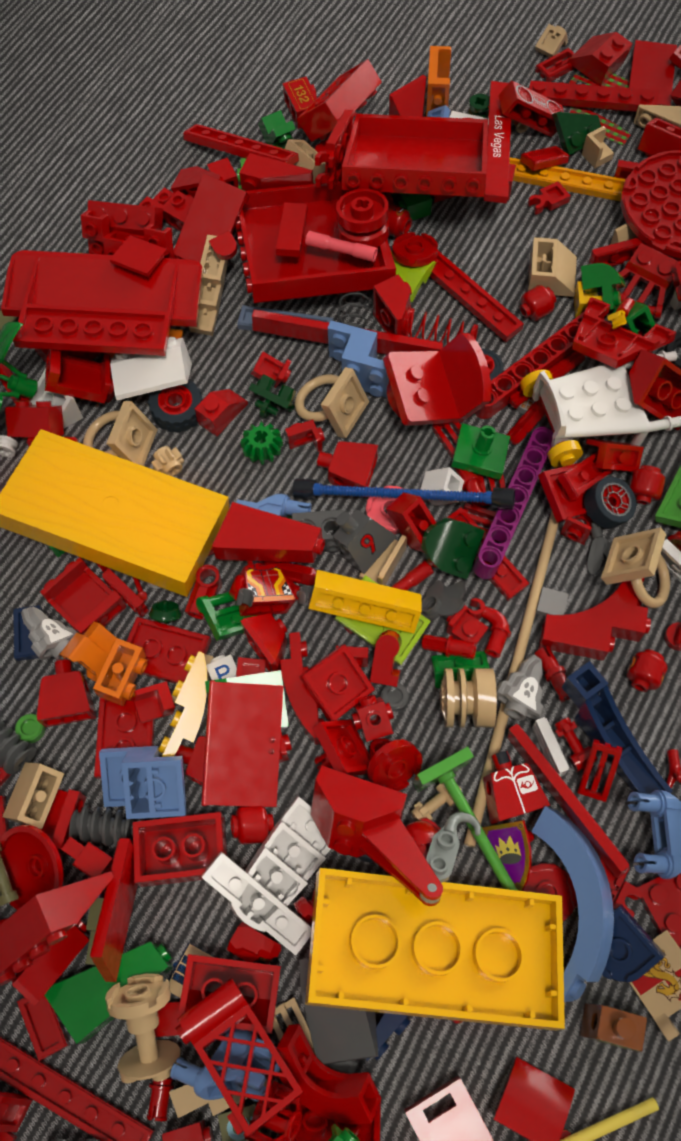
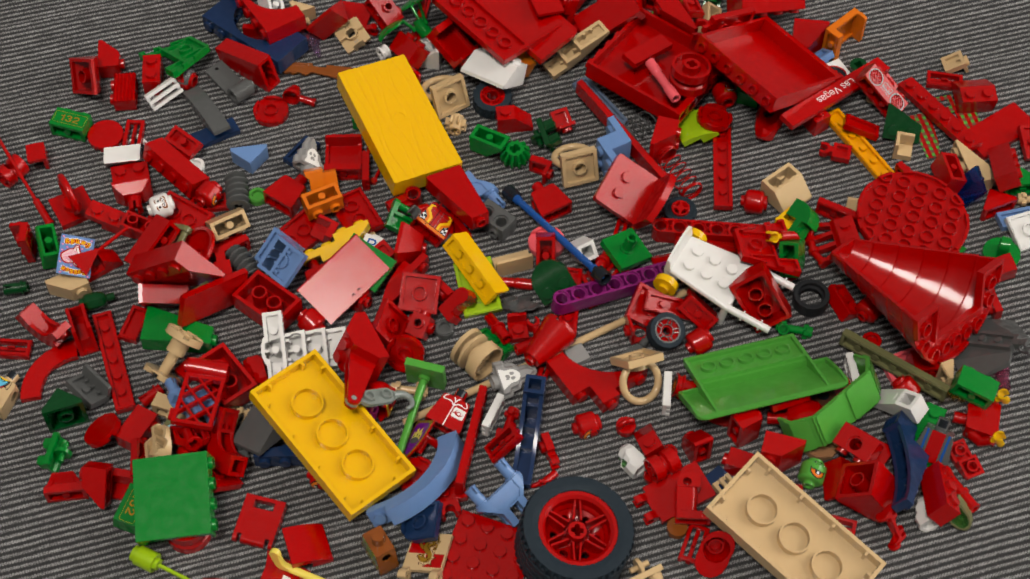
camera: 40 degrees right, 10 degrees down
(165, 611) = (376, 195): dark green hat -> none
(224, 246) = (600, 32): red tile -> none
(225, 451) = (487, 141): none -> green slope
(361, 539) = (509, 238): dark grey torso -> none
(461, 224) = (767, 127): none -> red piece
(524, 615) = (549, 340): none -> red cone
(647, 733) = (547, 447): none -> red plate

